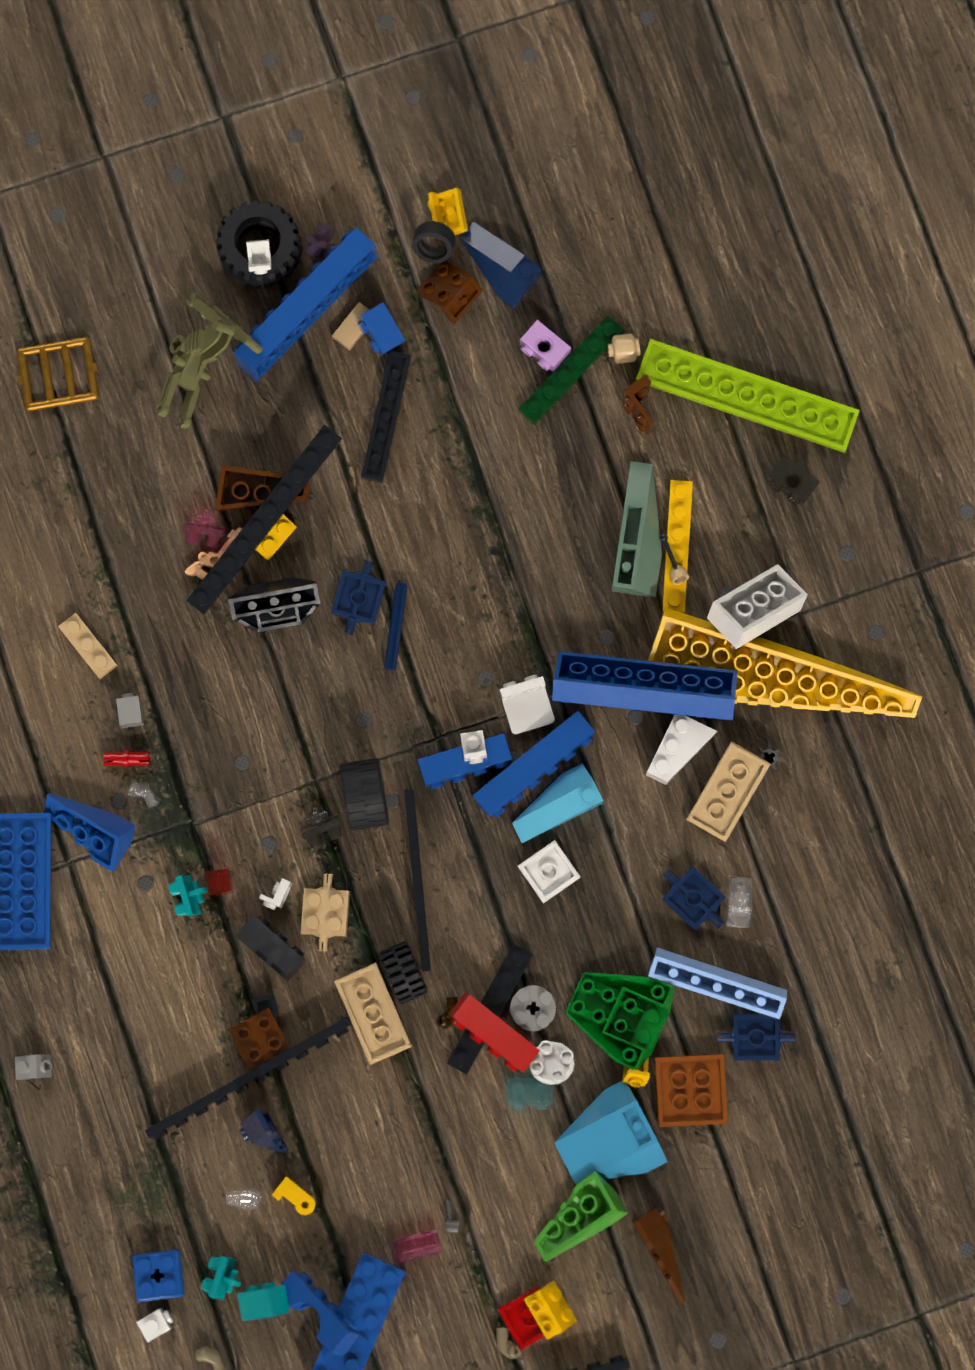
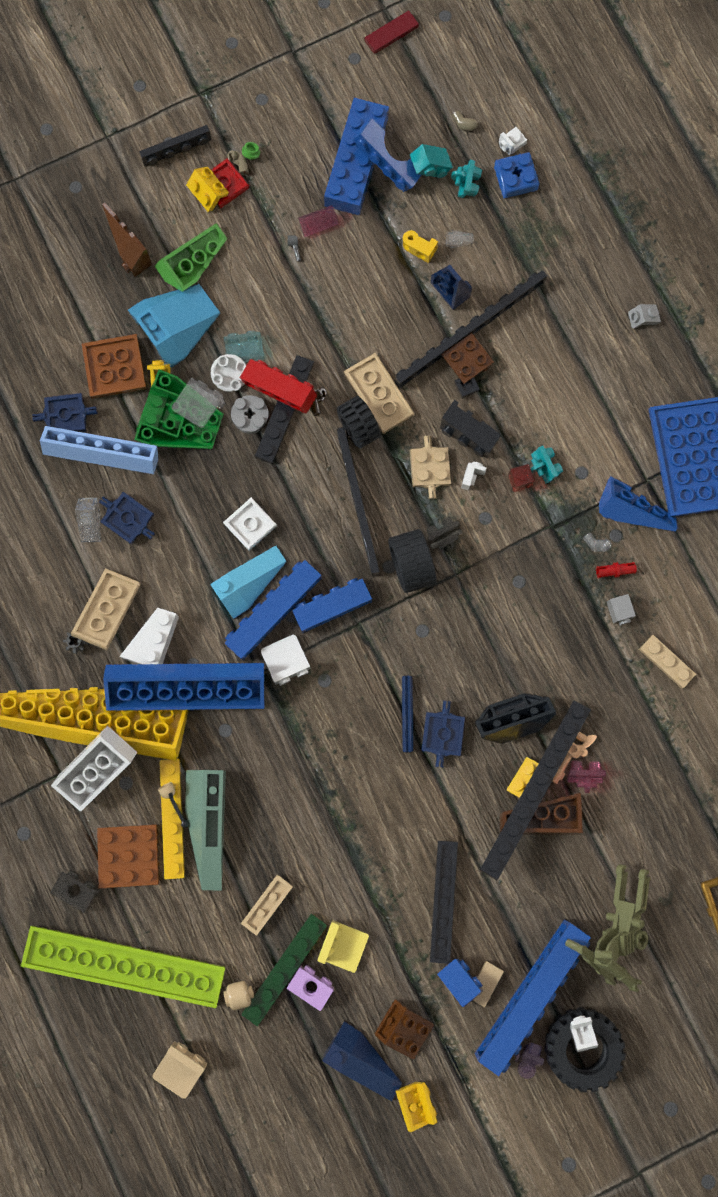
camera: 170 degrees right, 0 degrees up
(429, 253) = (423, 1084): black tyre -> none
(473, 746) = (325, 614): white bracket -> none
(489, 1354) = (251, 150): none -> bright green plate
(504, 384) = (343, 946): none -> light yellow bracket
(581, 439) = (267, 904): none -> tan plate
(593, 1025) = (198, 402): none -> clear bracket
(631, 400) = (226, 942): reddish brown bracket -> none
(696, 282) = (179, 1069): none -> tan bracket
(731, 512) = (128, 856): none -> dark orange plate

